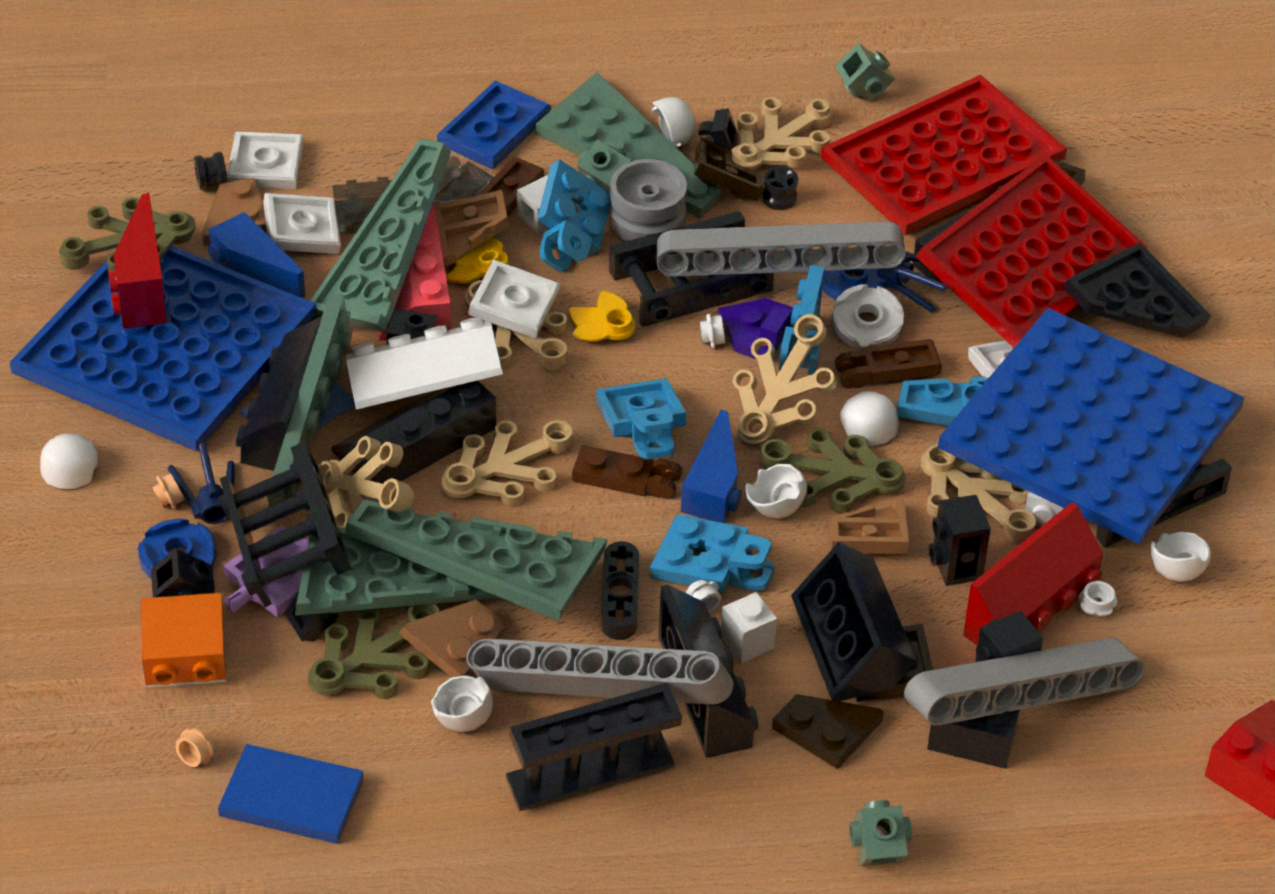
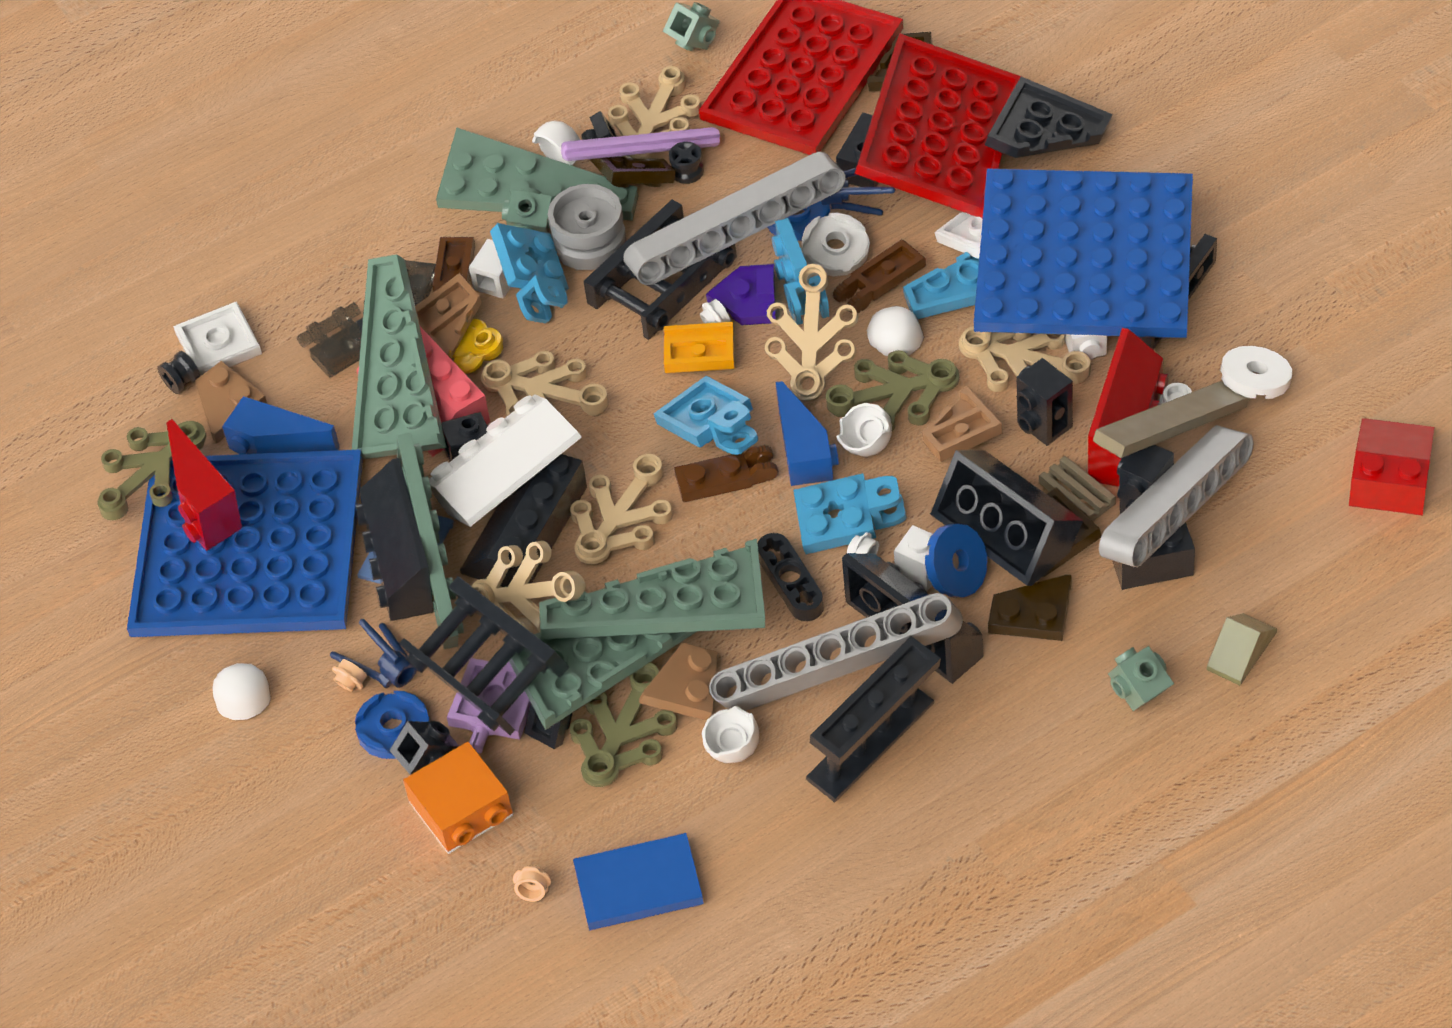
camera: 20 degrees left, 5 degrees up
(302, 223) = (294, 382): white tile -> none
(493, 124) = (397, 215): blue tile -> none
(514, 299) = (531, 365): white tile -> none
(605, 321) = (614, 349): yellow plate -> none
(678, 351) = (698, 347): none -> light orange plate
(743, 151) = (637, 144): none -> lavender axle
(797, 649) = (971, 555): none -> blue tile
(938, 614) = (1081, 485): none -> dark tan tile
(1003, 854) = (1239, 647): none -> slope
(1066, 607) = (1169, 419): none -> dark tan tile
(1180, 556) = (1220, 331): white hair -> none
(1211, 608) = (1241, 362): none -> white tile

